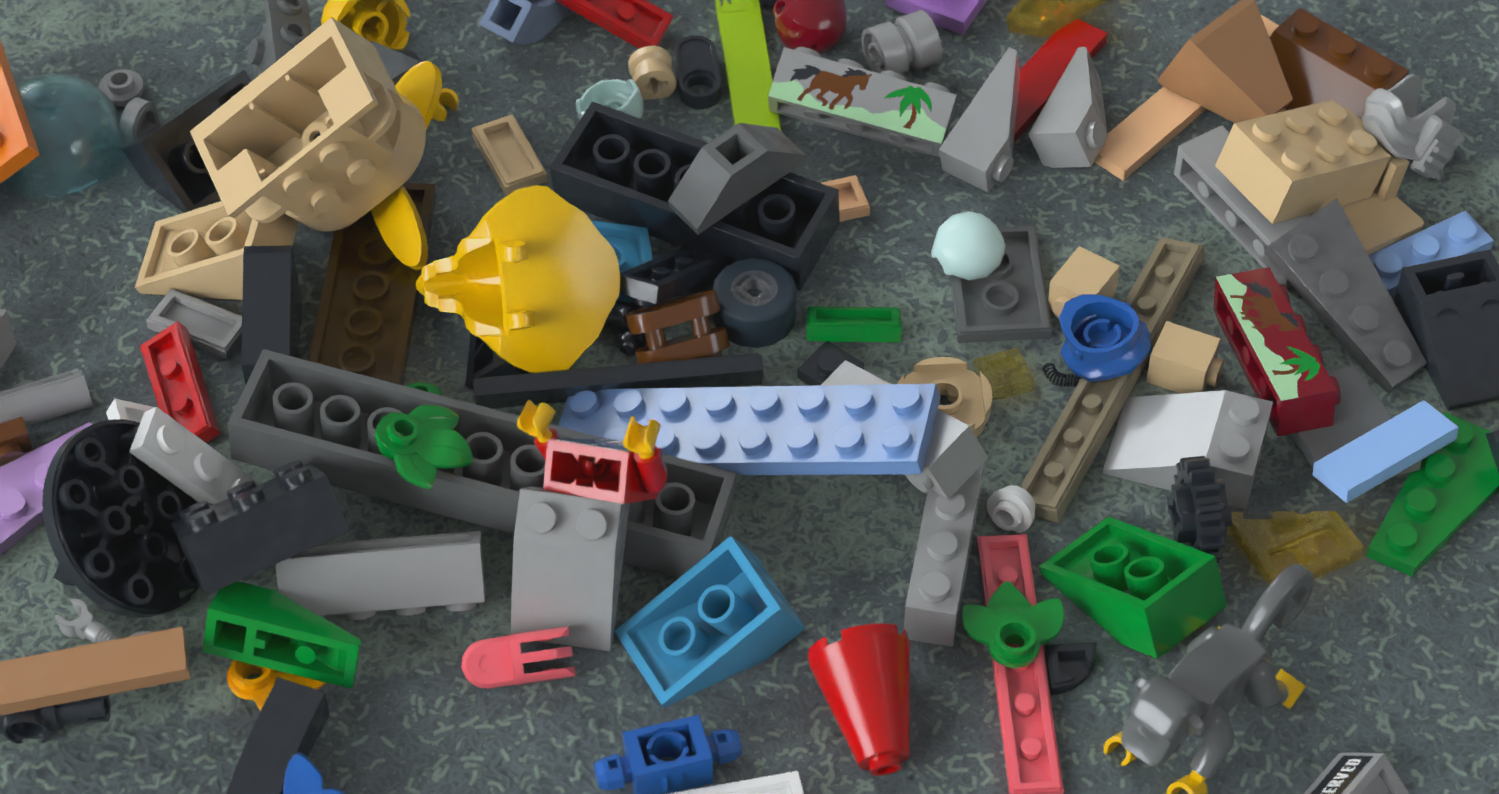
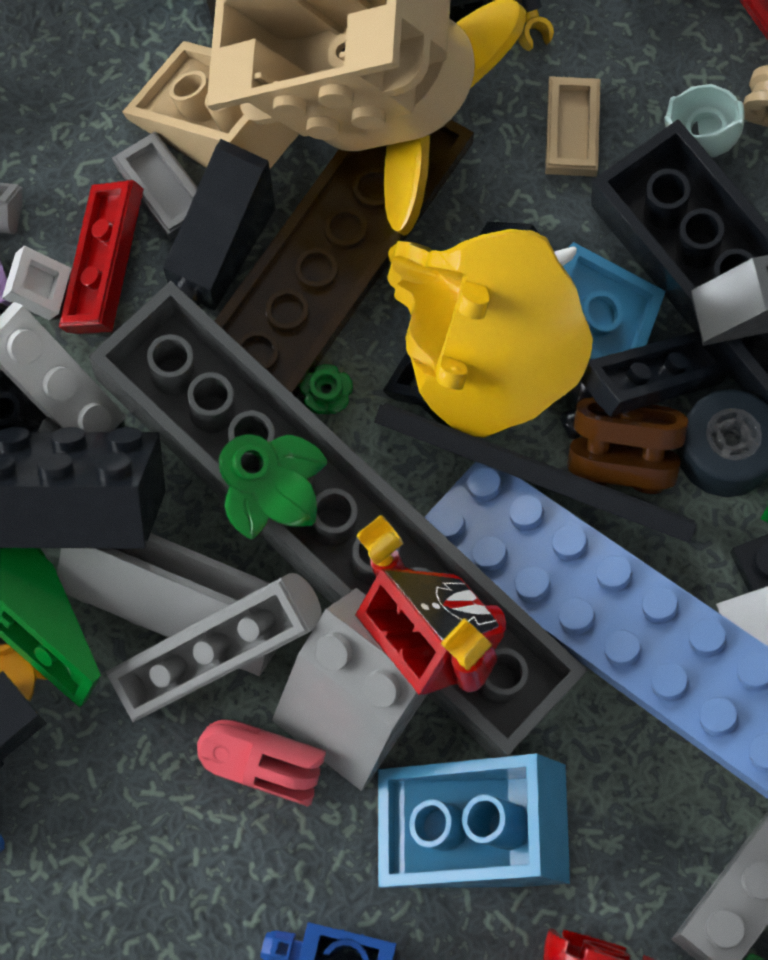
camera: 30 degrees right, 20 degrees up
(439, 580) = (216, 645): none -> light grey brick

